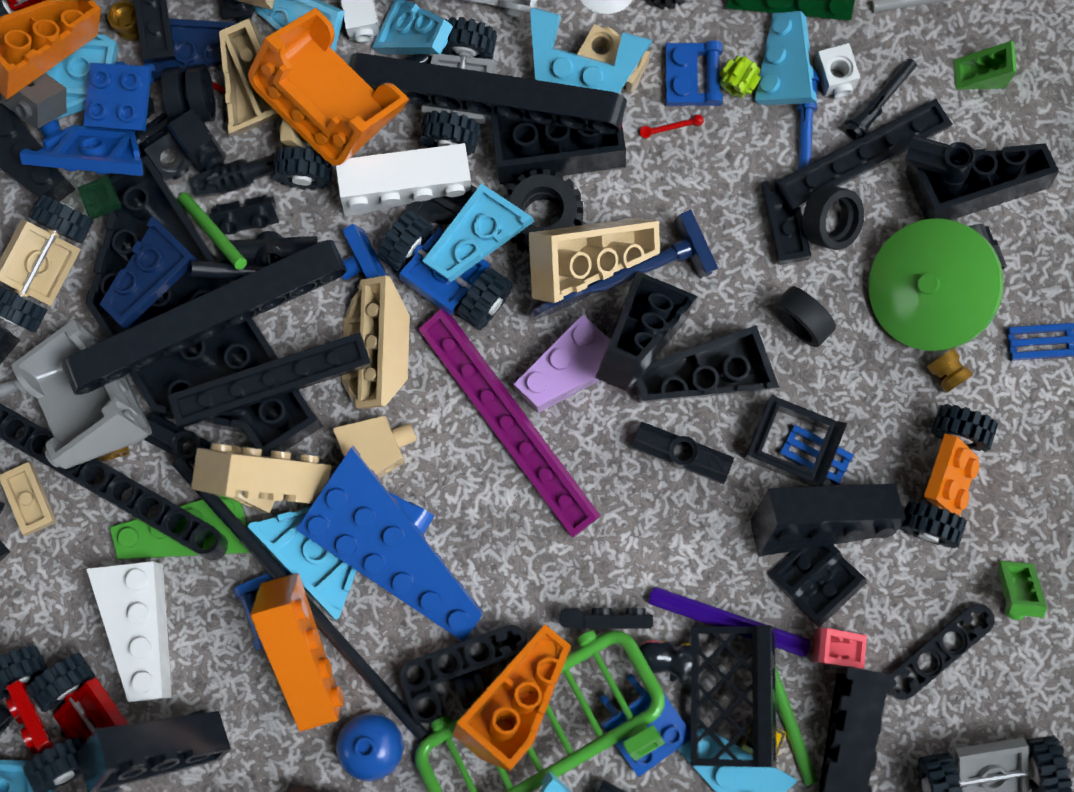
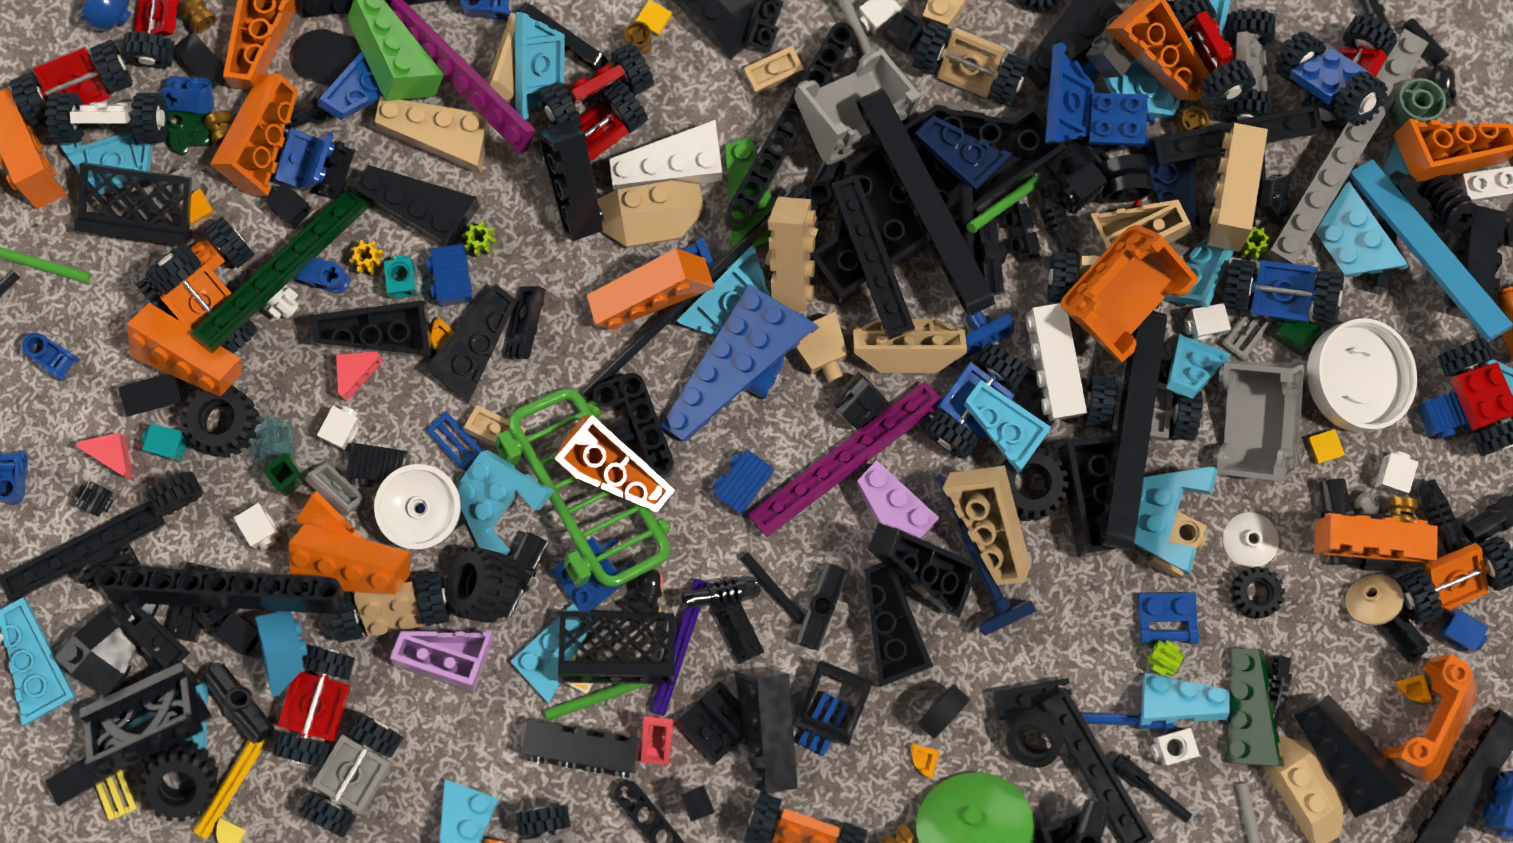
camera: 80 degrees right, 0 degrees up
(99, 197) = (1027, 110): clear green tile -> none
(198, 651) = (651, 212): none -> tan wedge
(370, 746) = (575, 352): blue cylinder -> none
(442, 401) = (861, 401): none -> black piece
(534, 543) = (742, 482): none -> blue brick
(603, 619) = (679, 541): black hinge -> none
(646, 132) = (1112, 576): red hinge -> none
(658, 511) = (771, 587): none -> black bar
(667, 569) = (722, 593): none -> black hinge
(712, 550) = (739, 632): none -> black hinge
(854, 342) = (924, 759): none -> light orange tile
(919, 599) = (697, 803): none -> black piece

